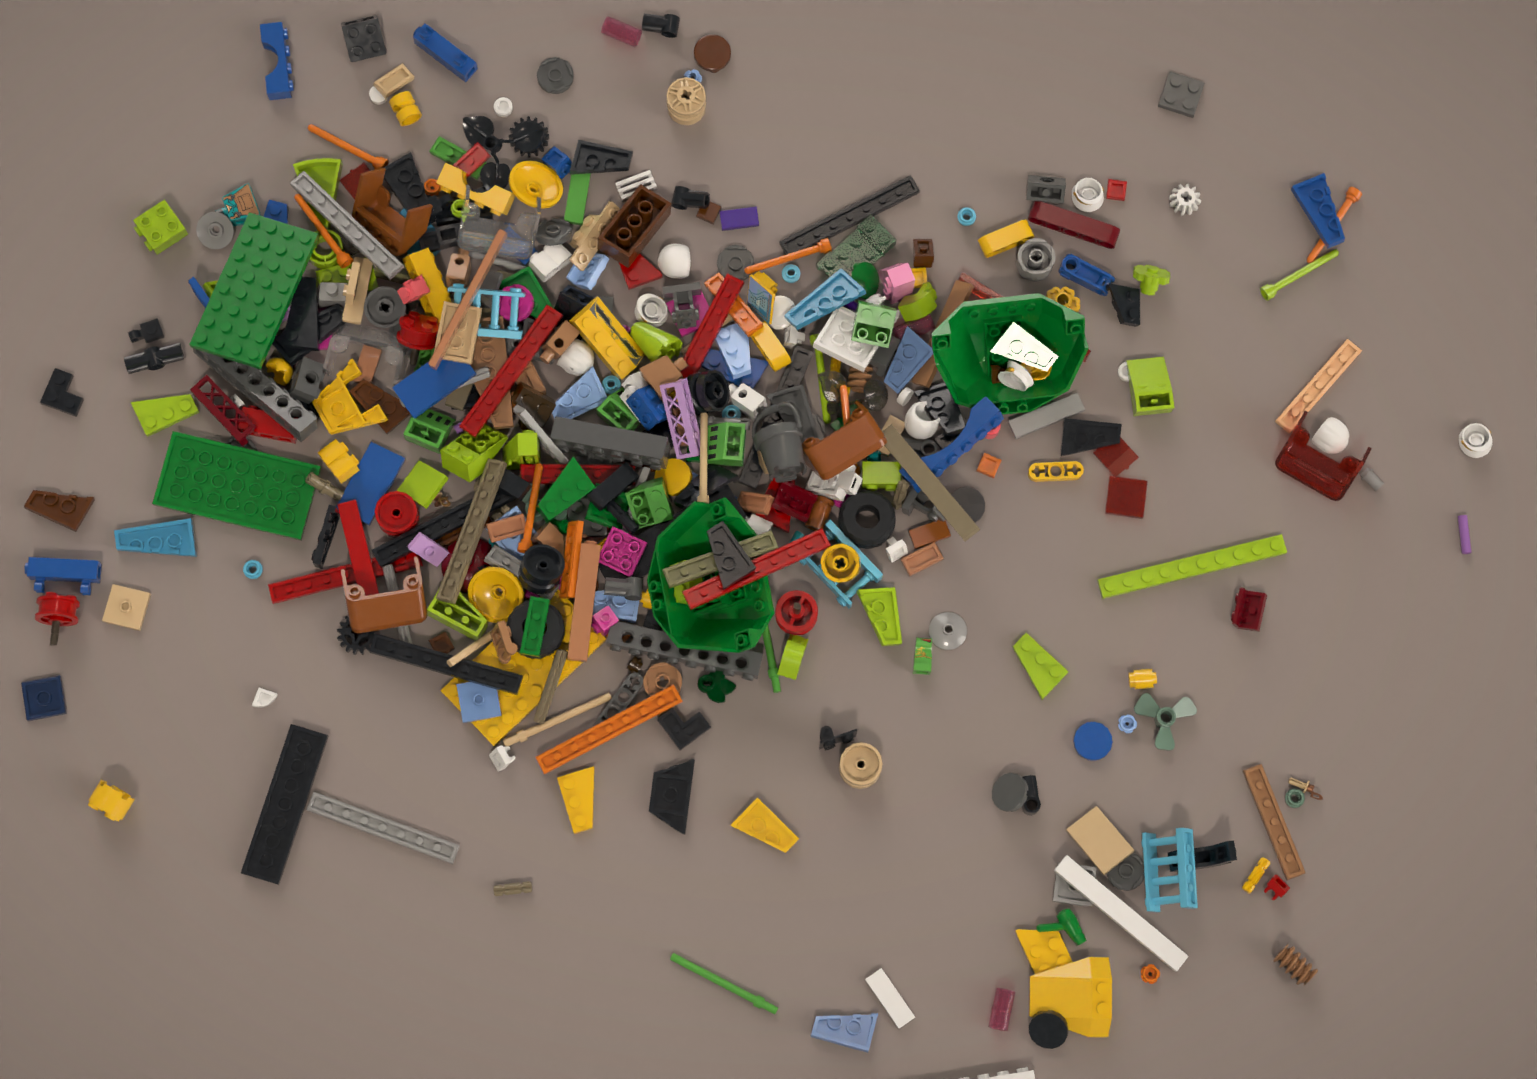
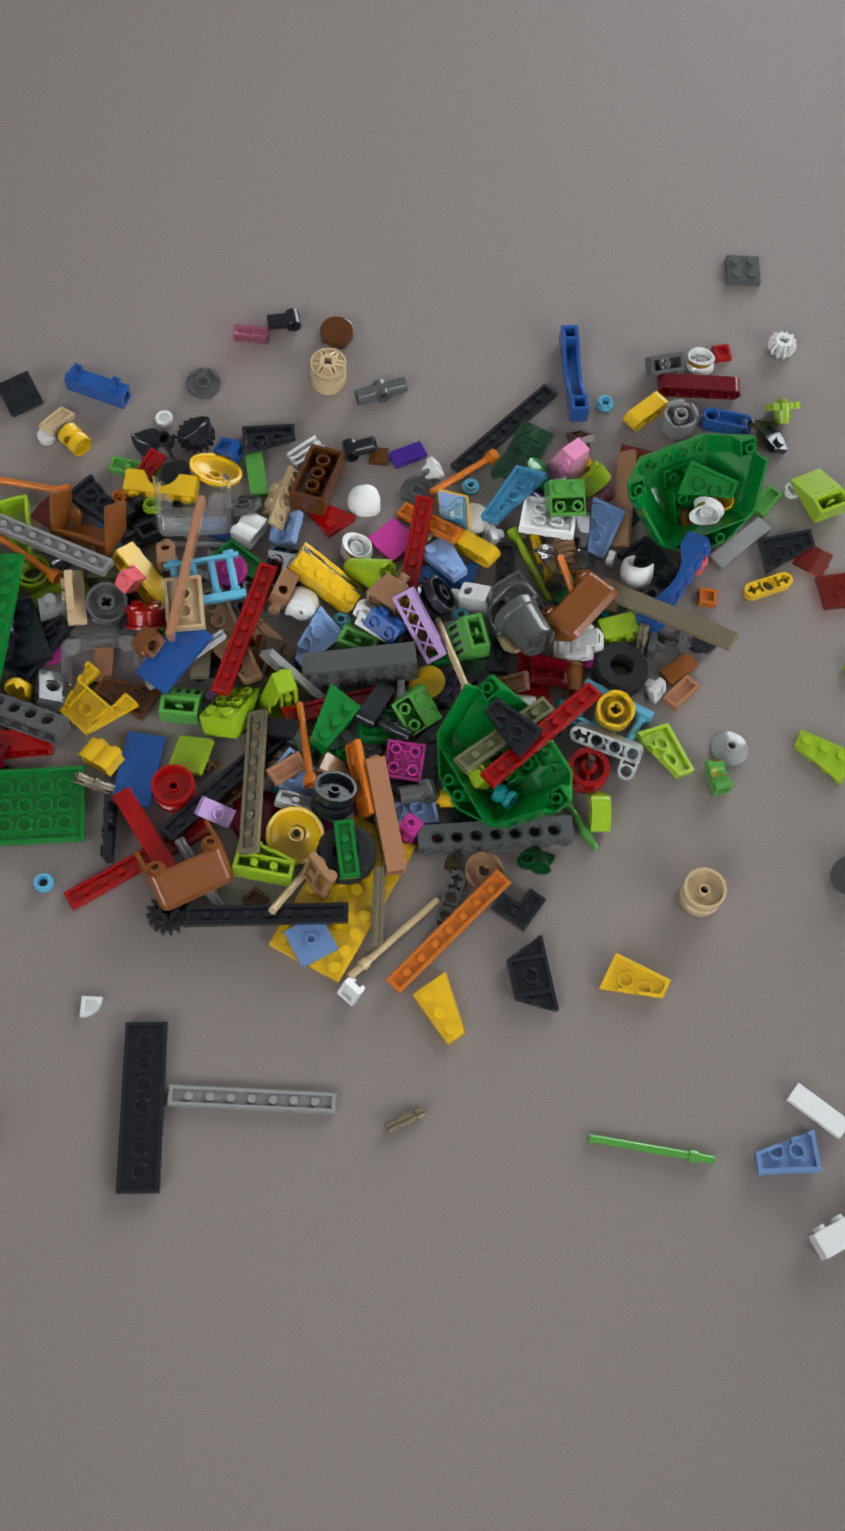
camera: 20 degrees left, 10 degrees down
(411, 363) = (148, 642): none -> dark orange brick
(681, 295) = (381, 525): dark grey tile -> none
(702, 618) = (504, 796): none -> teal wheel
(735, 137) = (381, 390): none -> dark grey piece
(760, 243) = (435, 469): none -> white tile
(805, 577) = (606, 746): none -> light grey beam
(828, 739) = (663, 873): black hinge -> none
(944, 173) = (570, 356): none -> blue arch
(1093, 376) = (767, 501): none -> bright green tile

